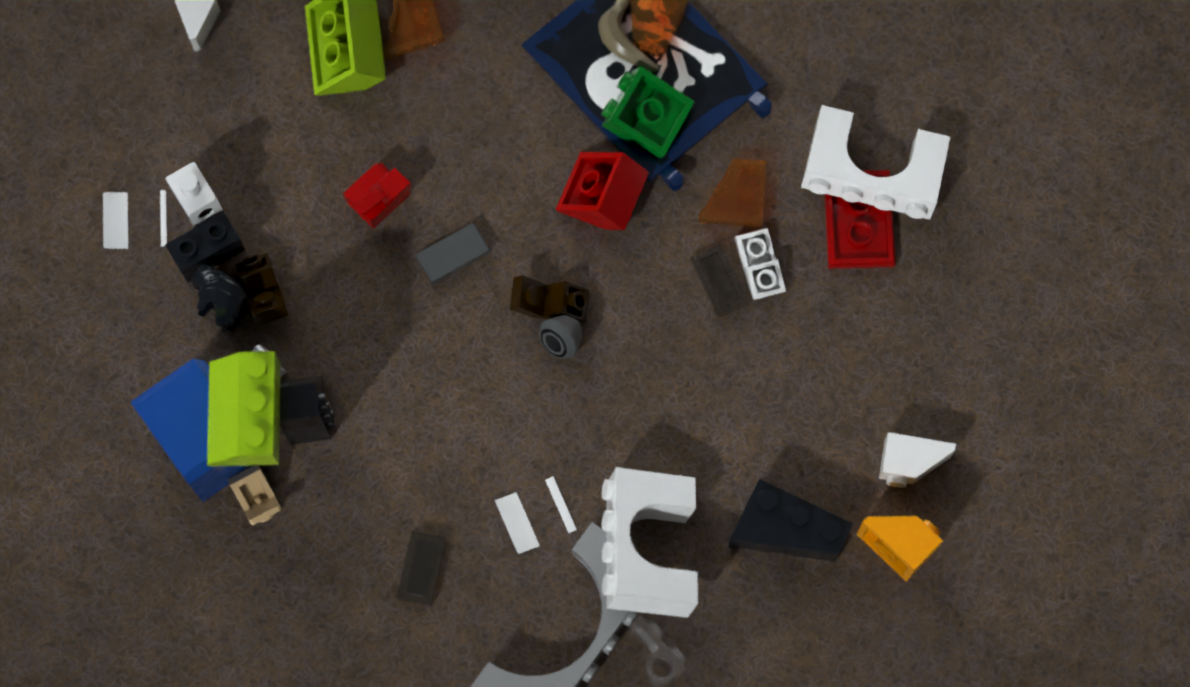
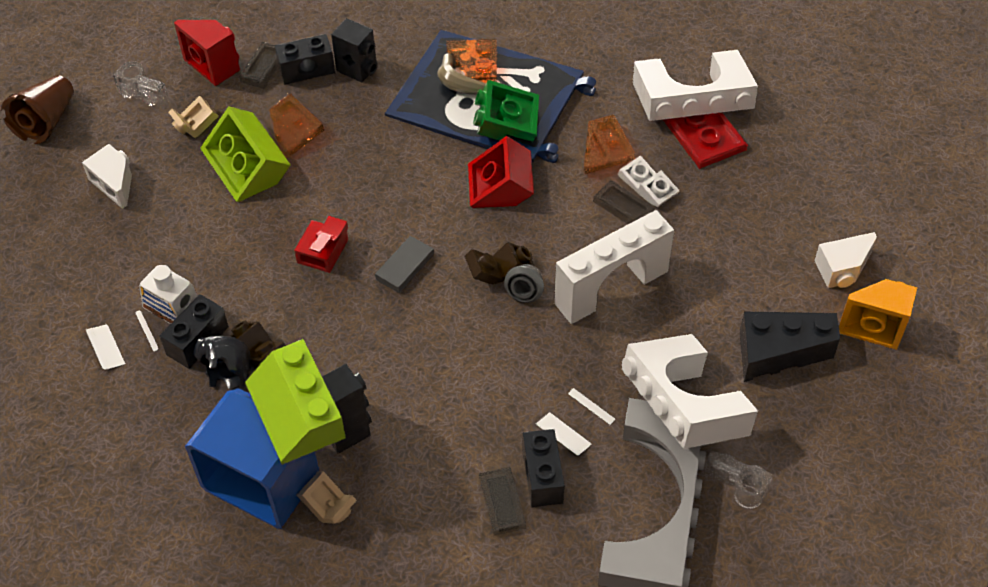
camera: 25 degrees left, 20 degrees down
(473, 555) = (543, 468): none -> black brick
(691, 355) = (641, 244): none -> white arch

